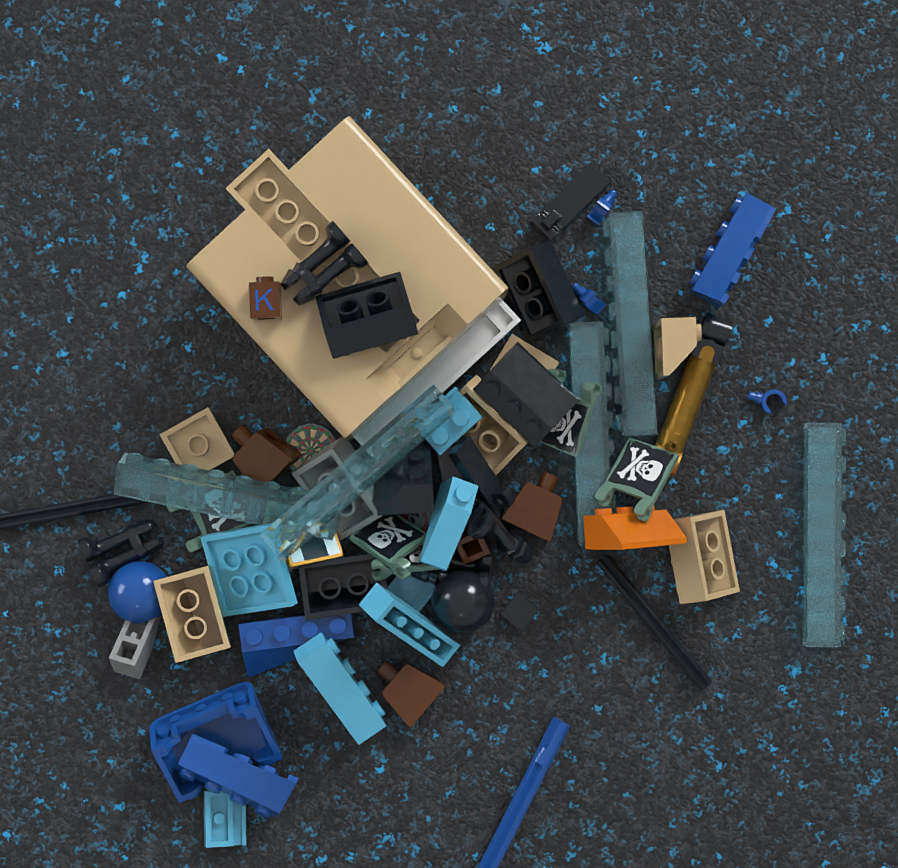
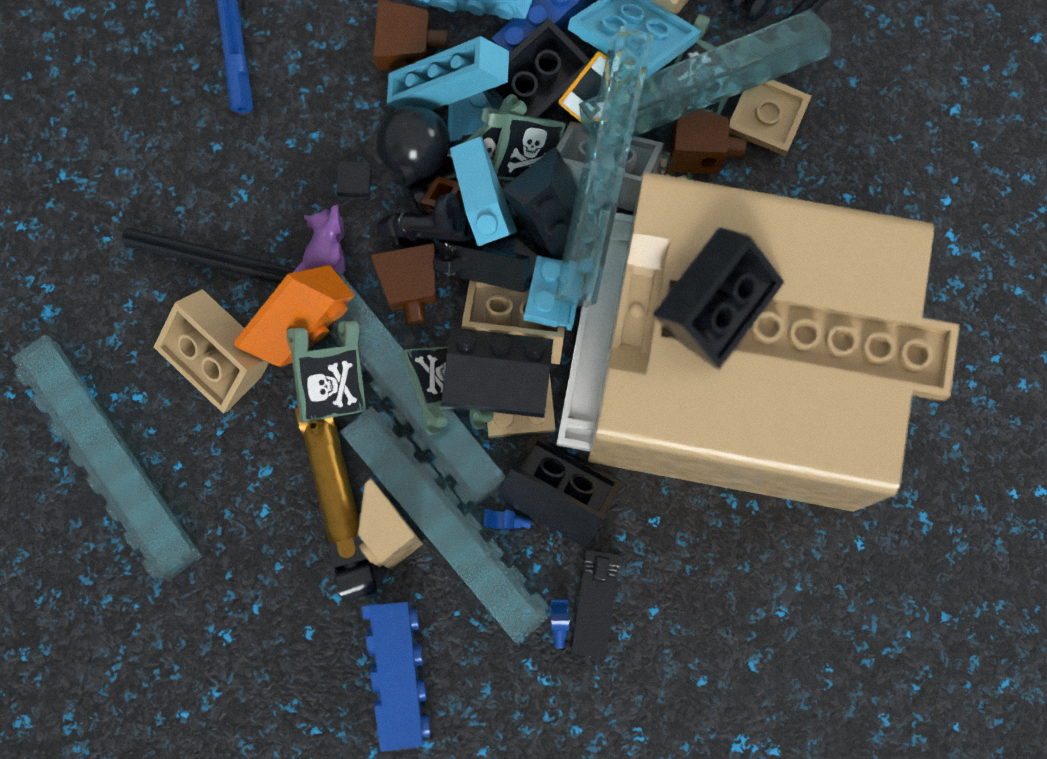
camera: 145 degrees right, 10 degrees down
(265, 299) = (832, 238): reddish brown brick -> none
(349, 258) = (795, 290): black piece -> none
(579, 569) = (325, 246): none -> medium lavender animal
(760, 398) = (261, 548): blue piece -> none

